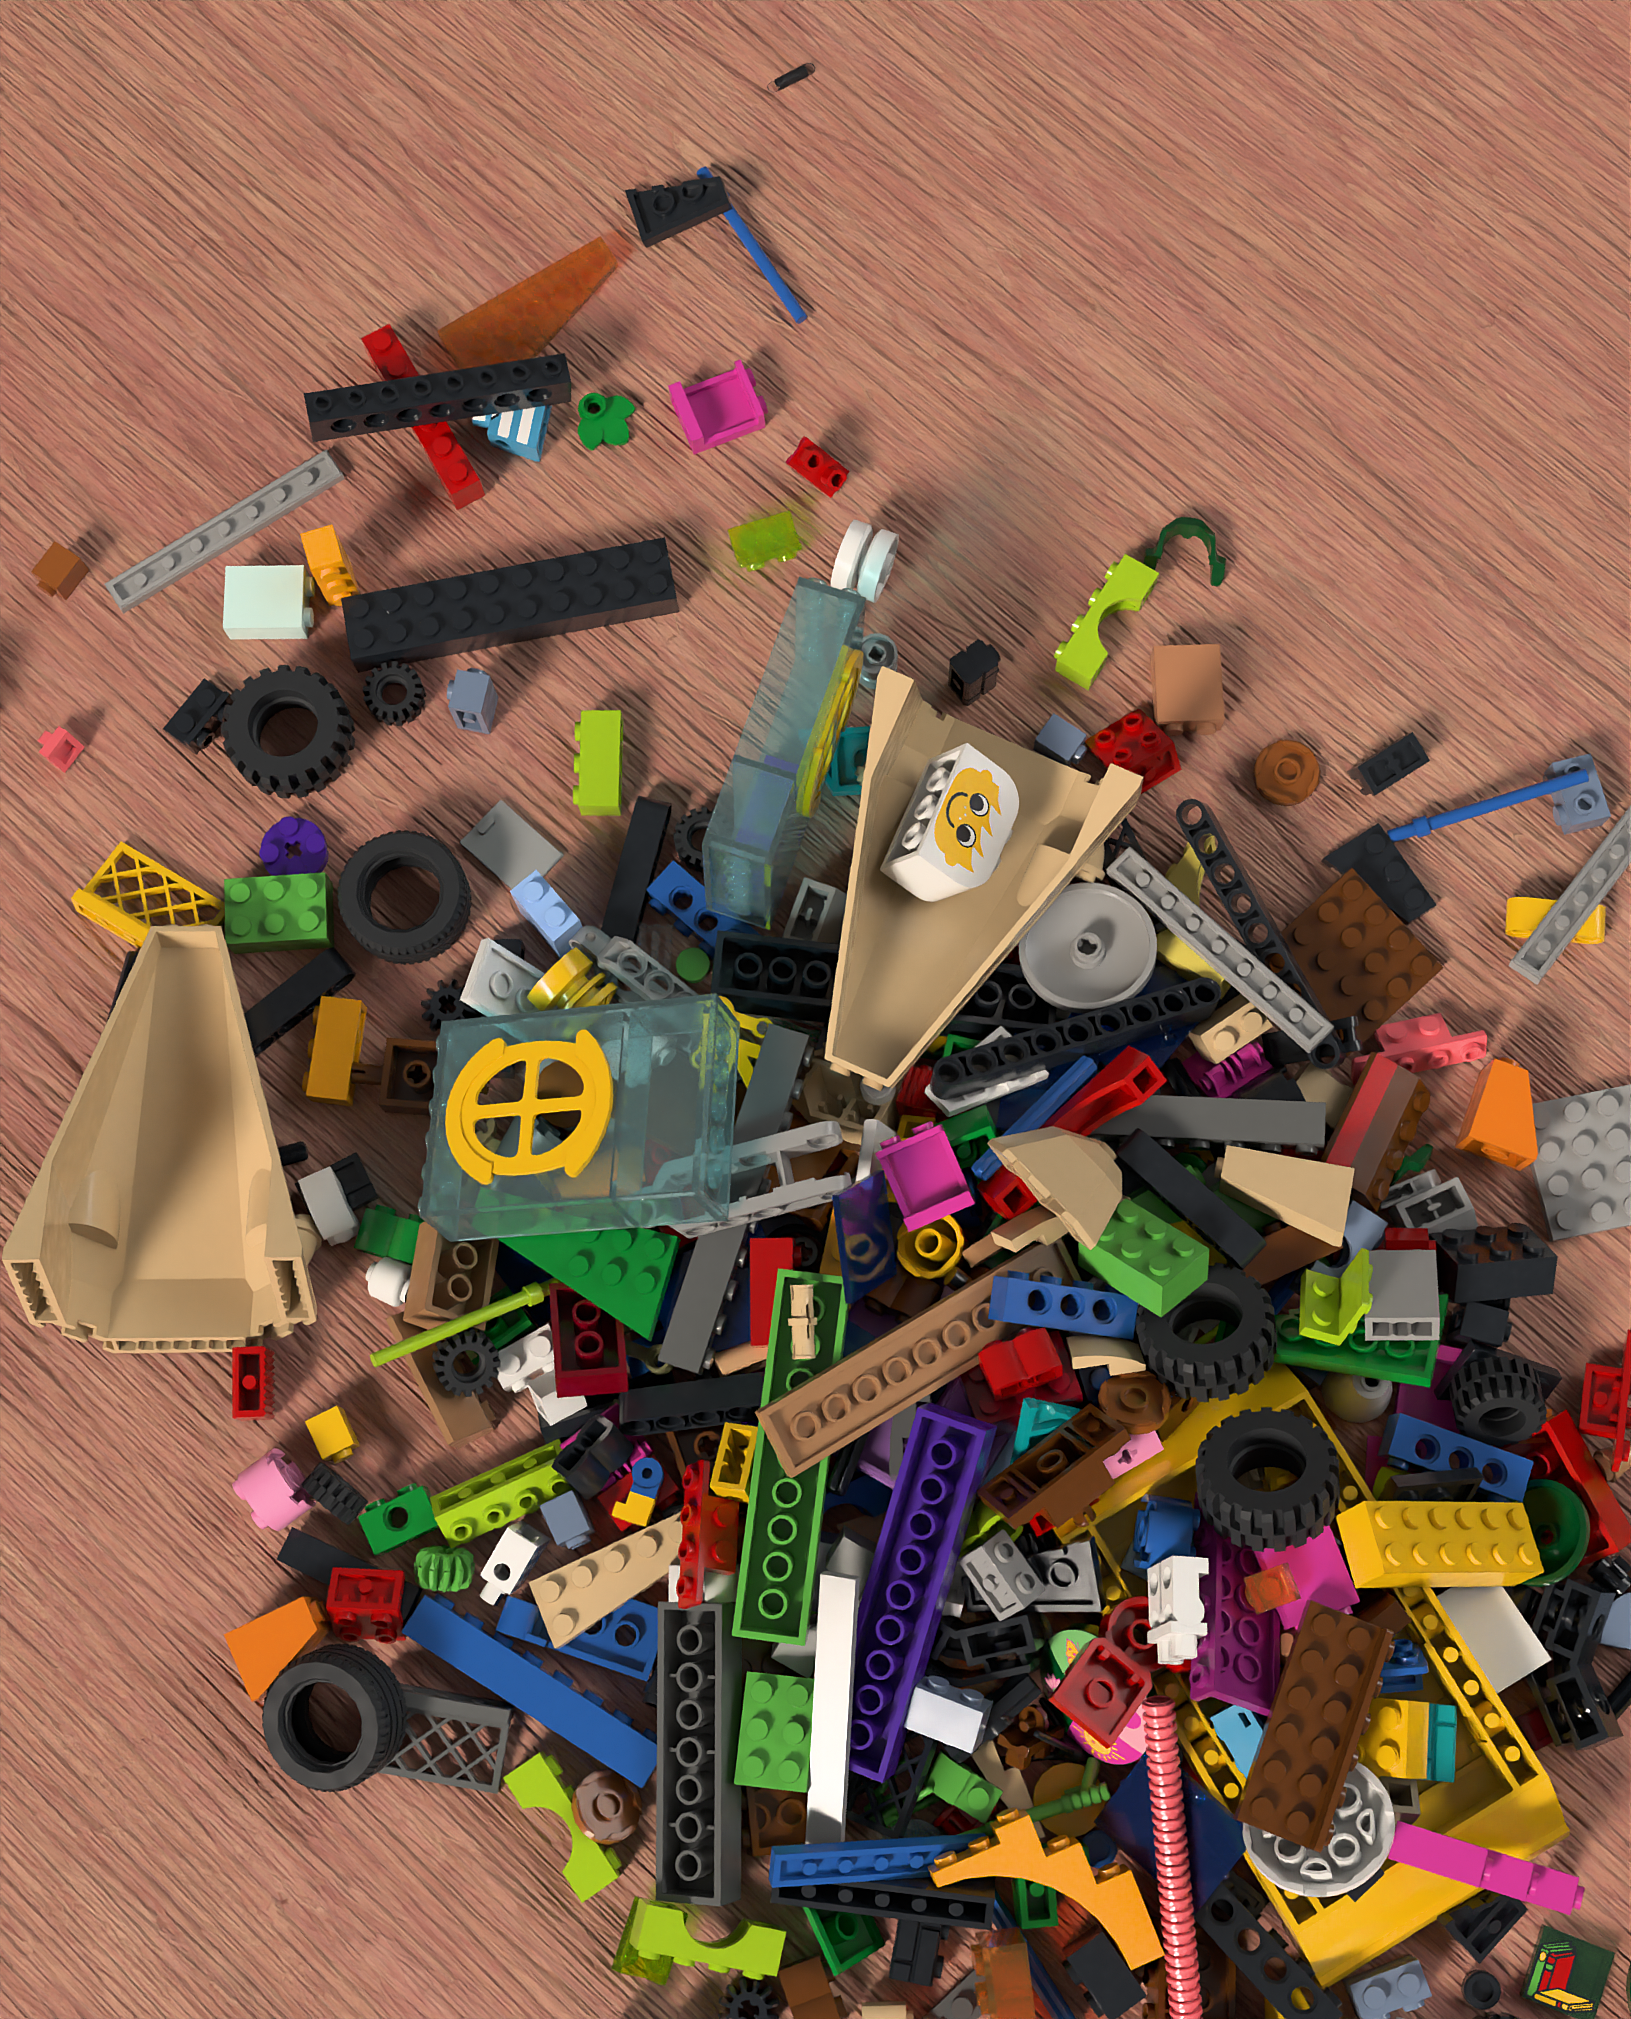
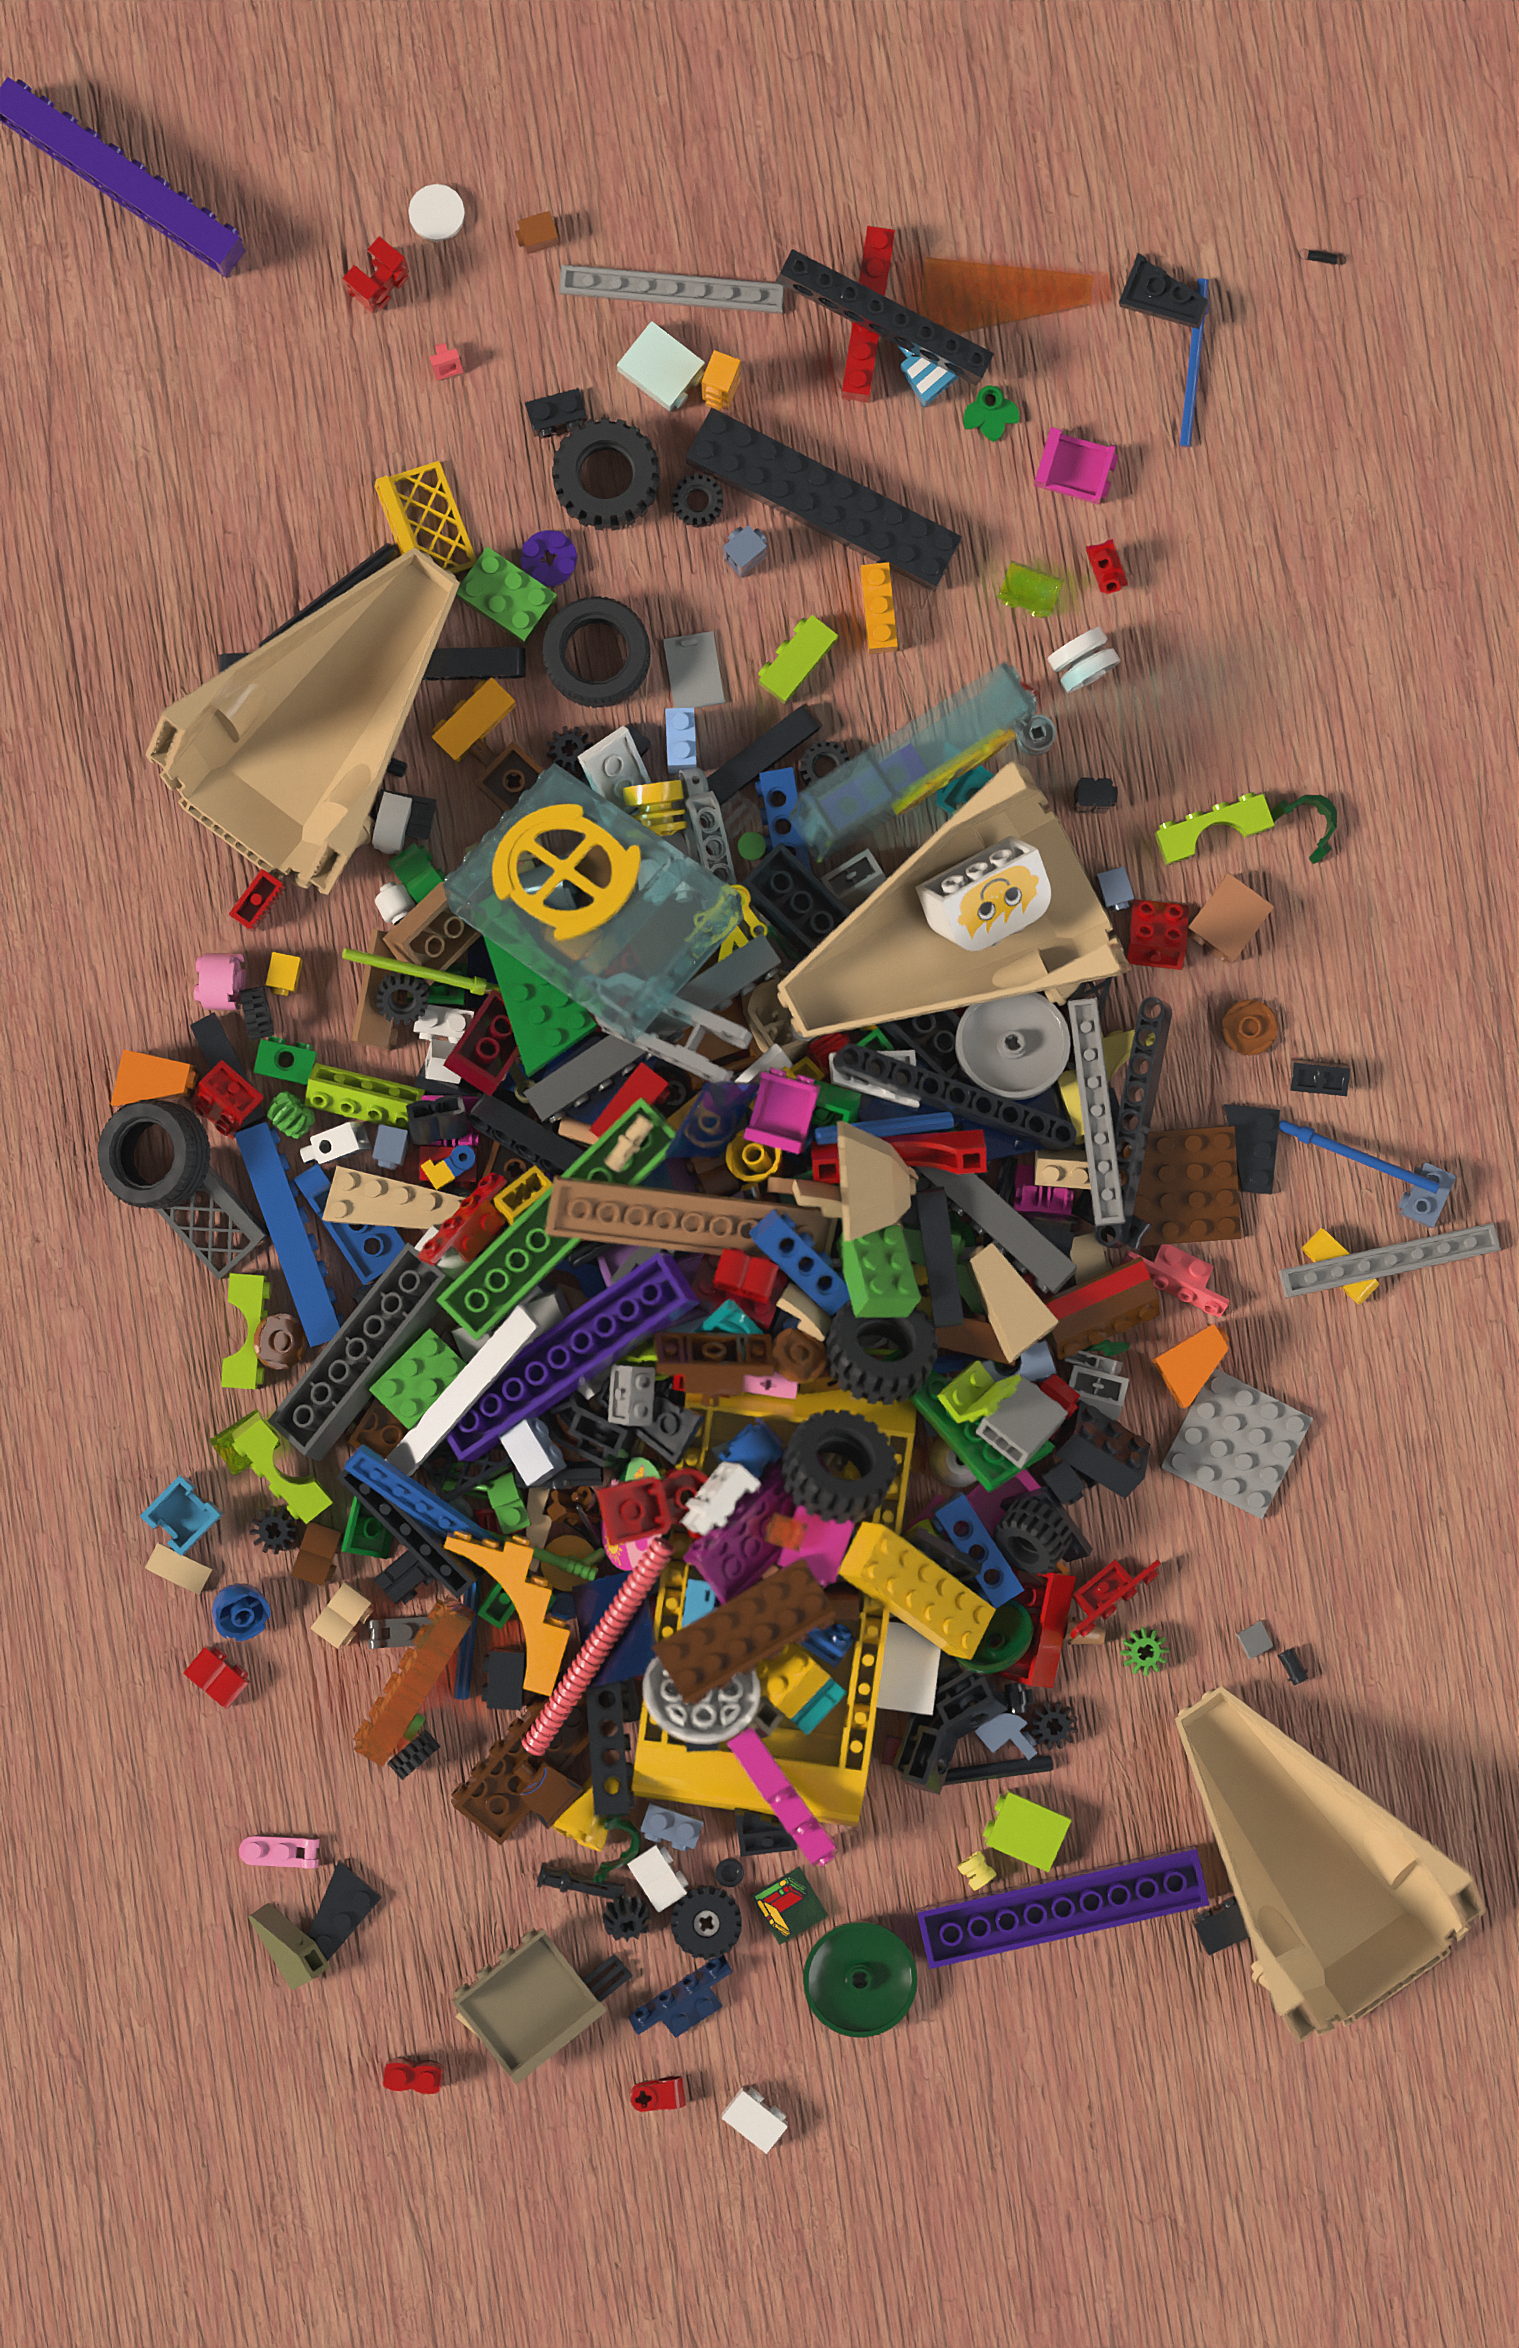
camera: 30 degrees right, 10 degrees up
(639, 661) = (878, 608): none -> light orange brick

